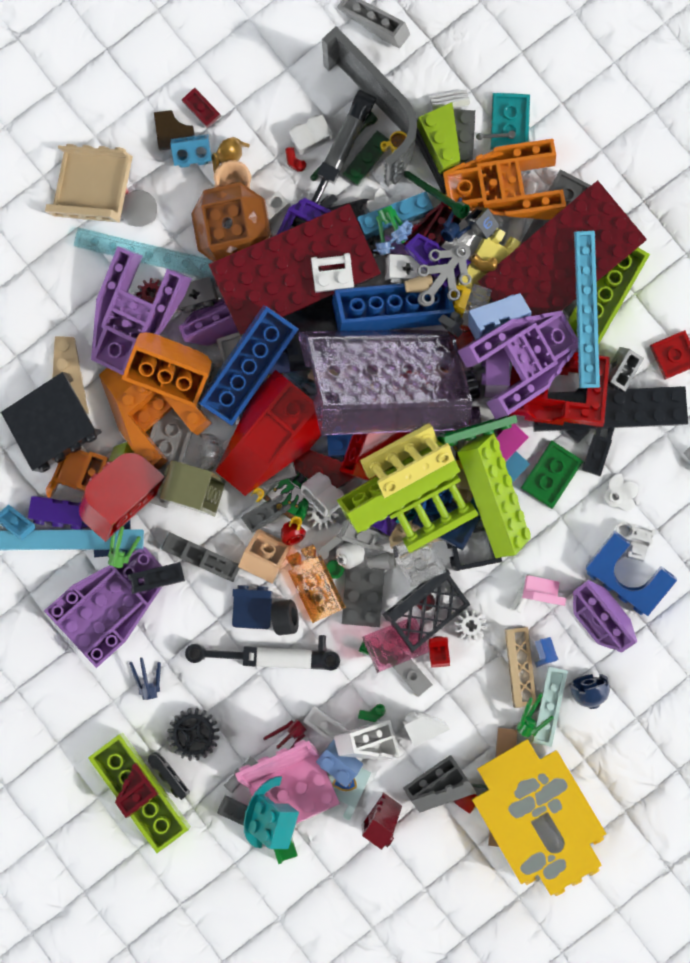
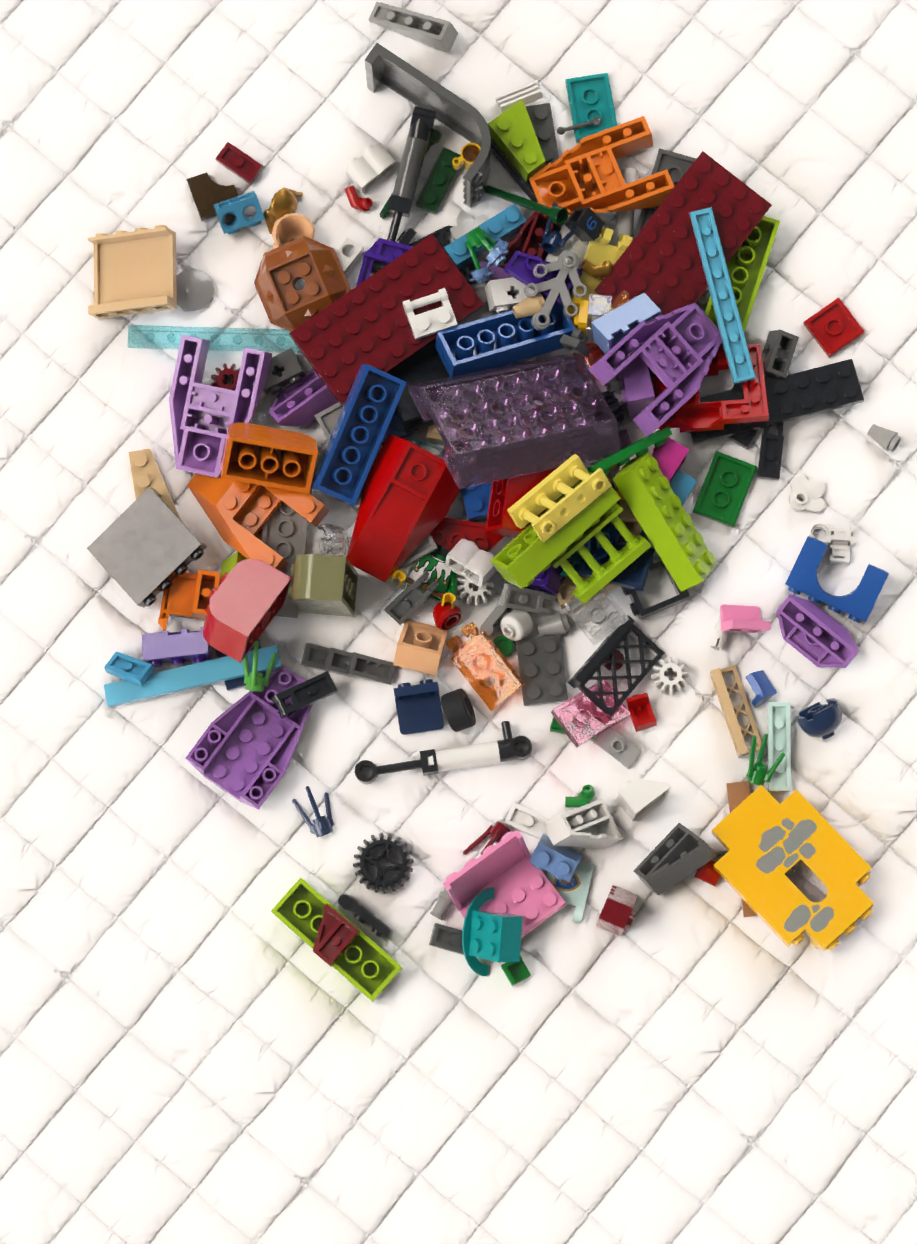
camera: 15 degrees left, 5 degrees down
(499, 295) = (622, 298): none -> clear orange tile

